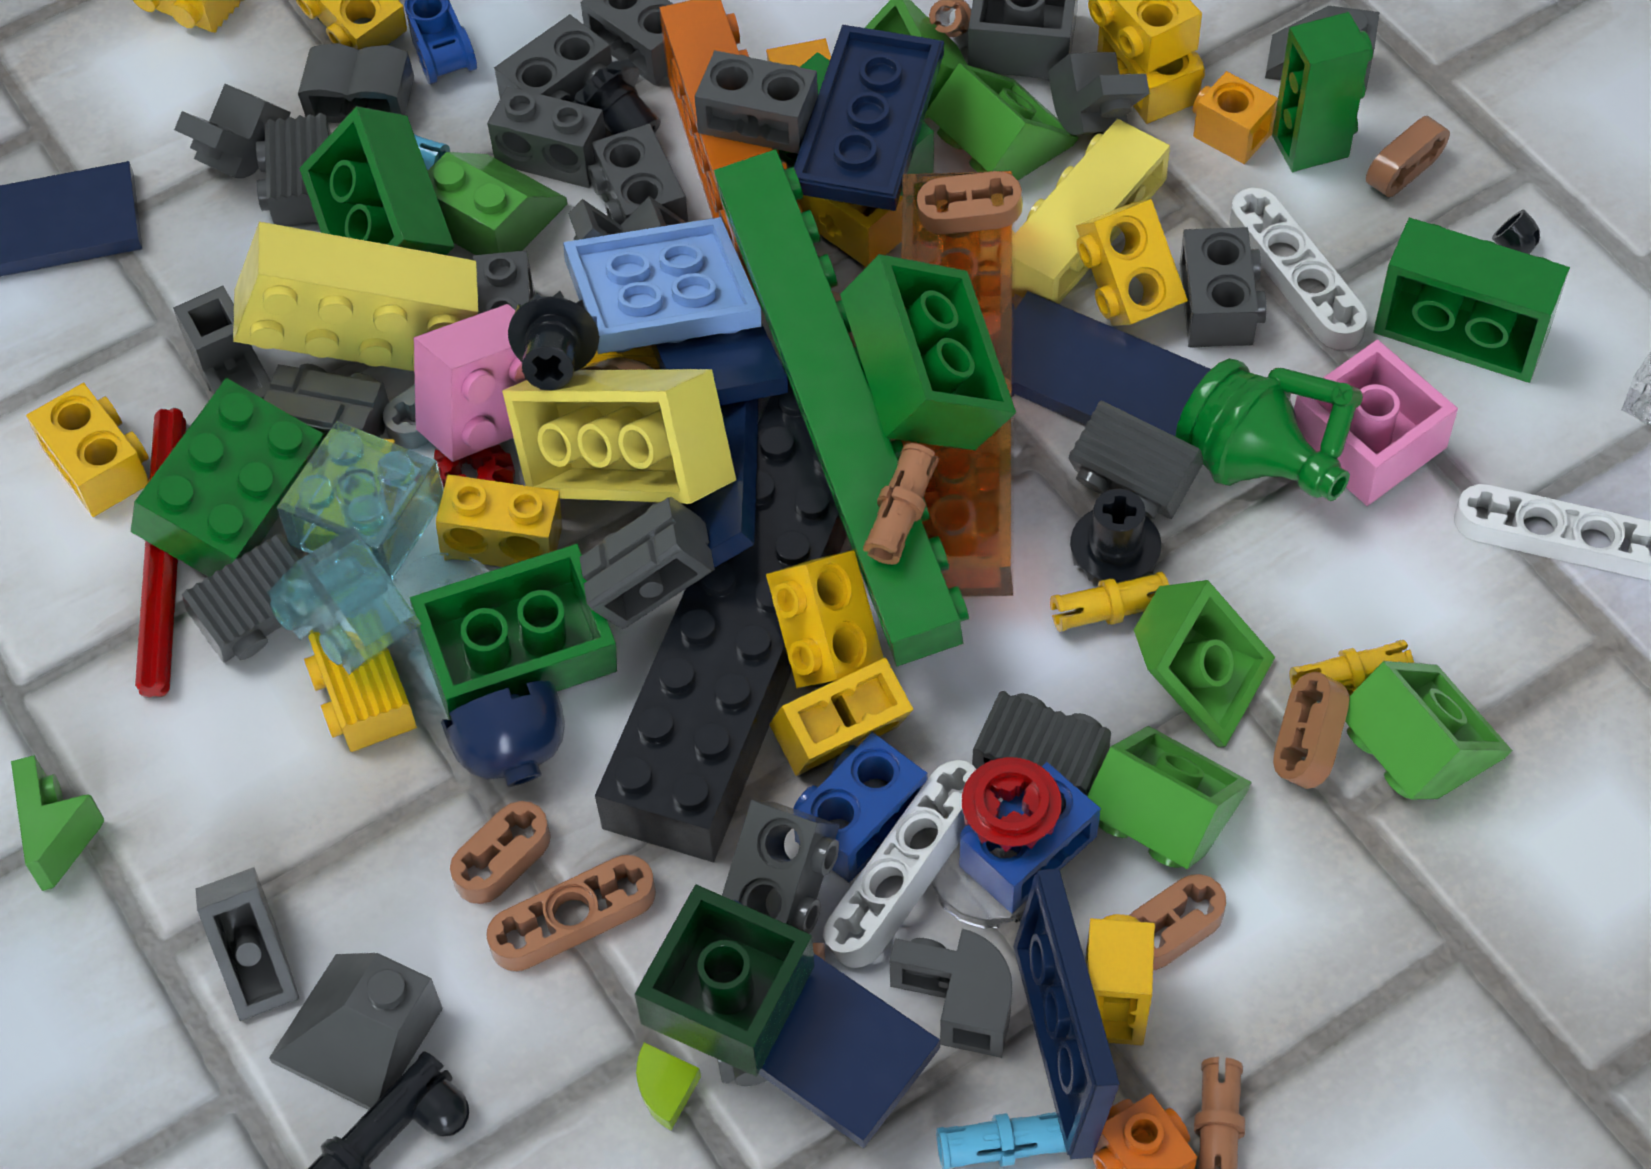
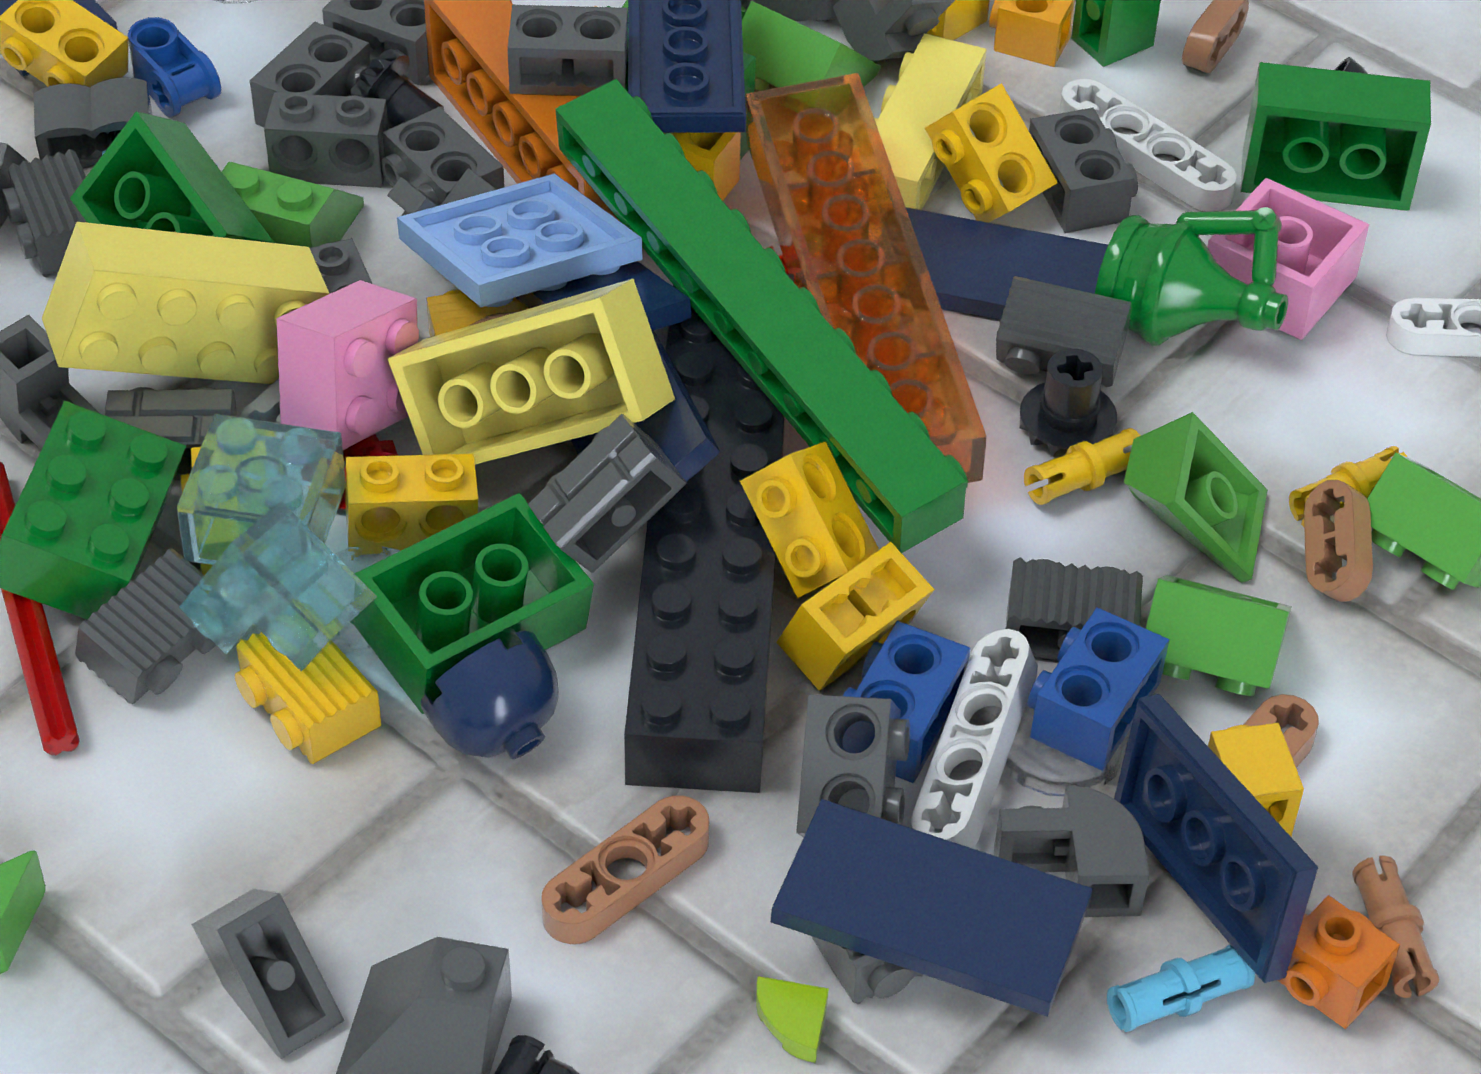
camera: 20 degrees left, 10 degrees down
(498, 850) = (512, 819): nougat beam -> none
(552, 339) = (436, 289): black gear -> none
(725, 979) = (855, 864): dark green brick -> none
(901, 503) = (871, 378): nougat pin -> none
(927, 353) = (843, 239): green brick -> none
(969, 202) = (827, 105): nougat beam -> none
(1005, 780) = (1066, 626): red gear -> none

